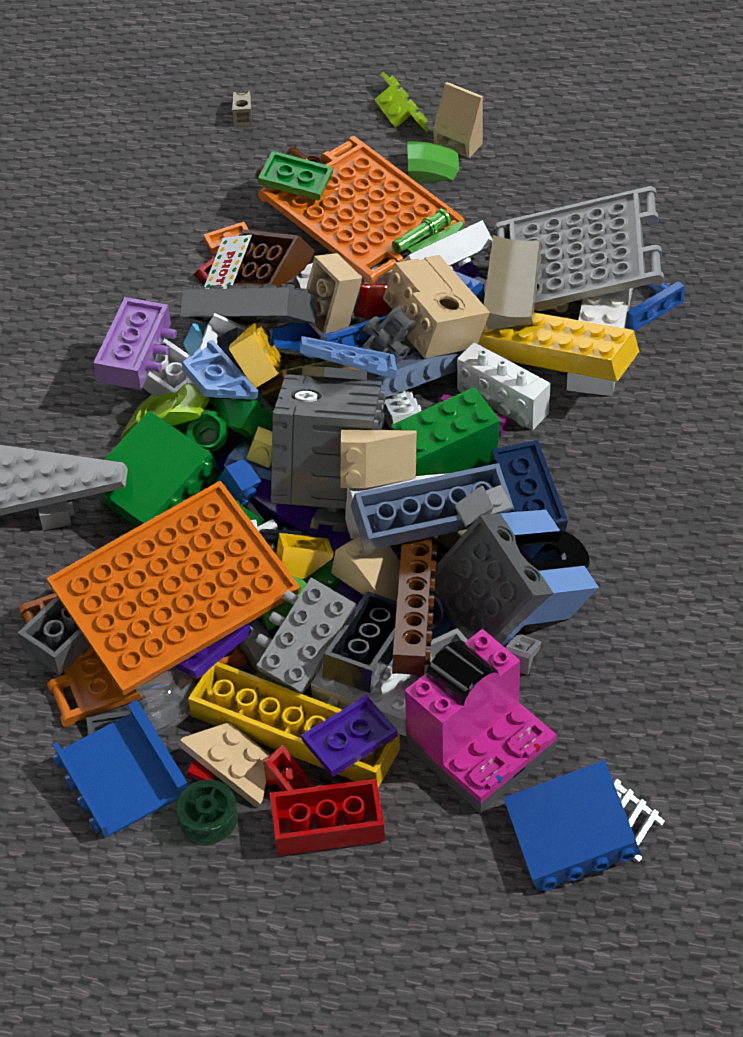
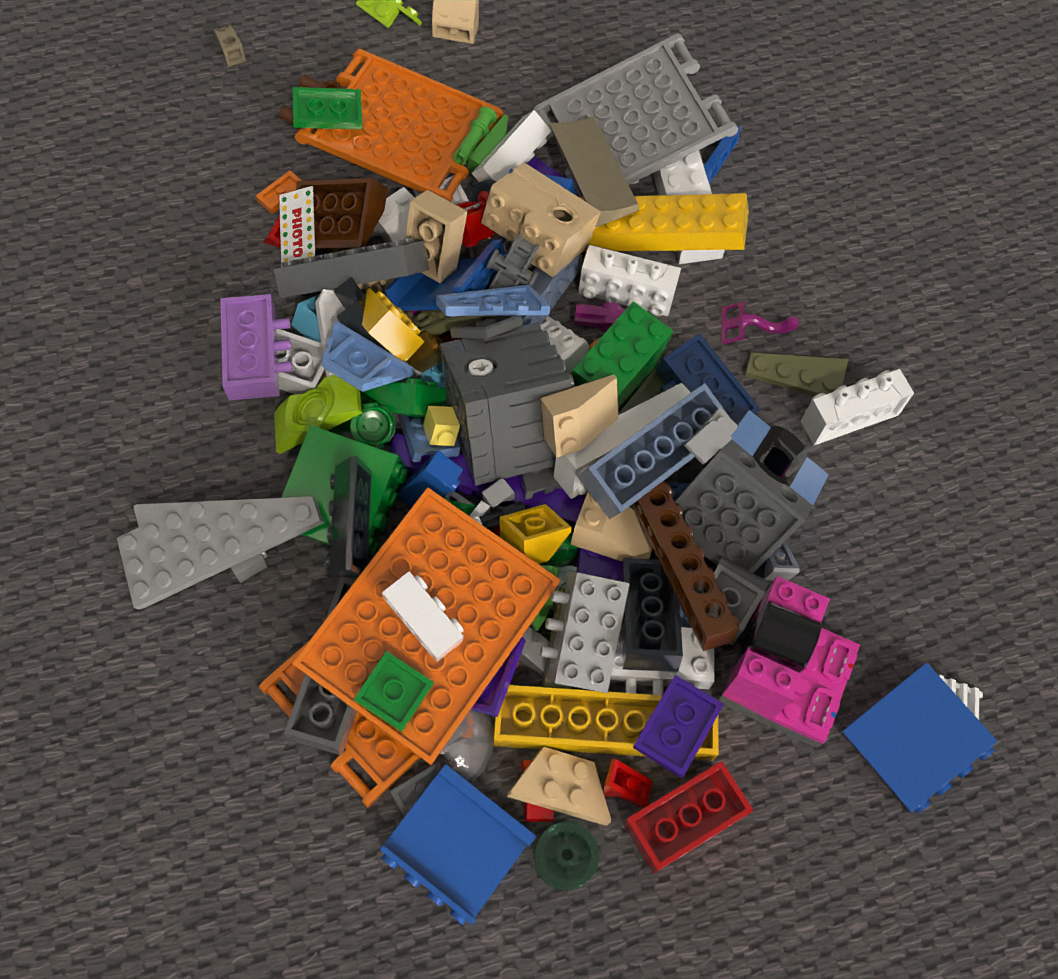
camera: 30 degrees left, 15 degrees up
(116, 622) = (394, 691): none -> green plate
(148, 484) = (349, 518): none -> black slope
(168, 573) = (423, 615): none -> white brick
(234, 320) = (349, 293): none -> black slope
(288, 516) = (497, 493): none -> light grey slope
(431, 162) = (442, 57): bright green slope -> none
(601, 449) = (745, 319): none -> magenta piece
(640, 514) = (798, 373): none -> olive wing
(665, 547) = (856, 406): none -> white piece

